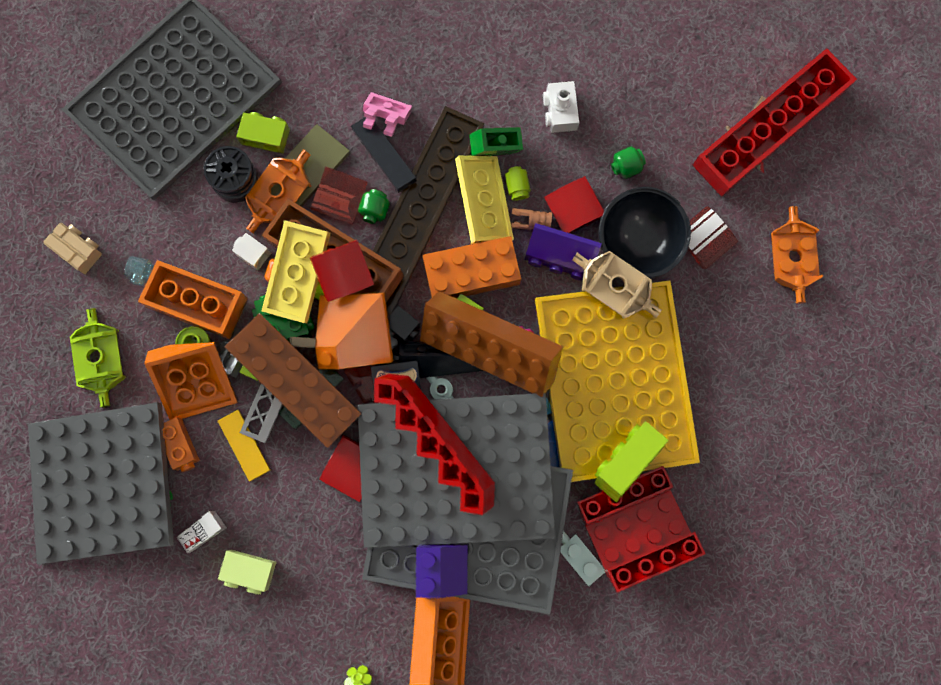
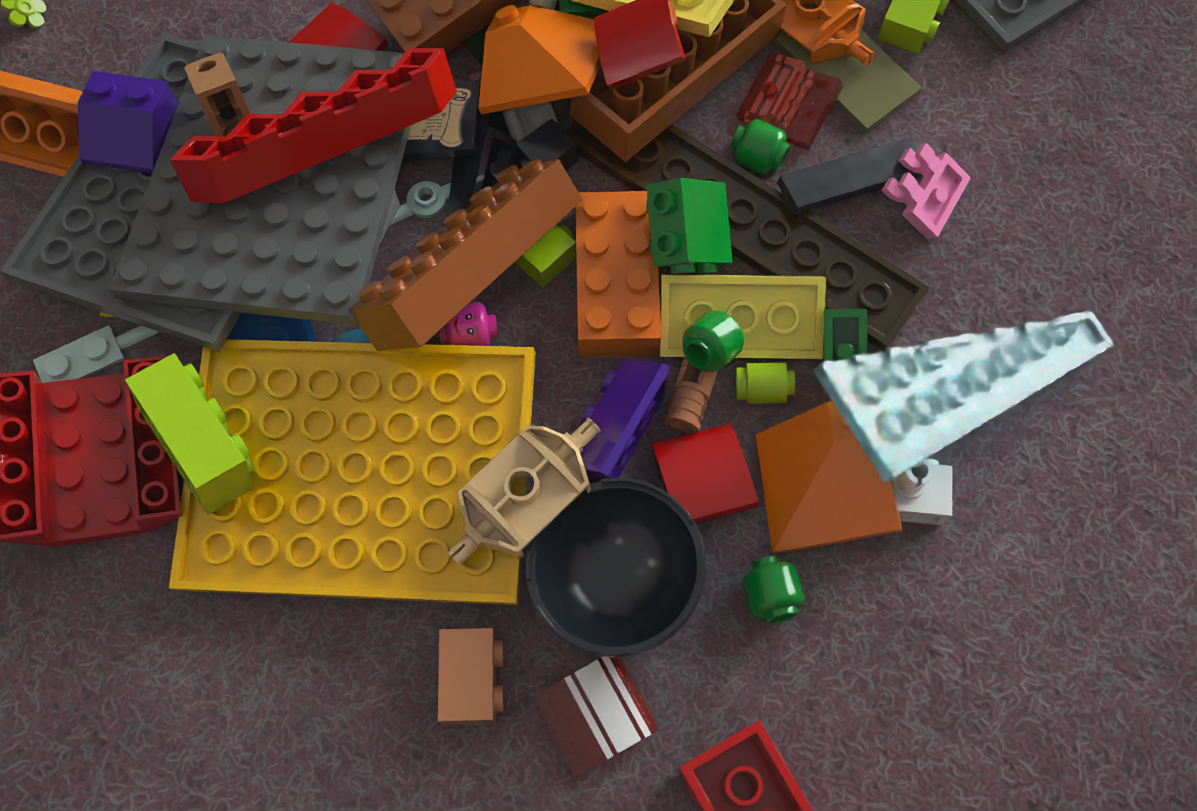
camera: 105 degrees right, 10 degrees down
(424, 508) = (217, 90): none -> medium nougat torso
(444, 230) = (689, 225): none -> green brick
(508, 208) = (712, 341): none -> green head
(522, 91) = (933, 393): none -> clear light blue wing
(567, 143) = (821, 484): none -> orange slope
(705, 300) = (469, 676): none -> nougat brick

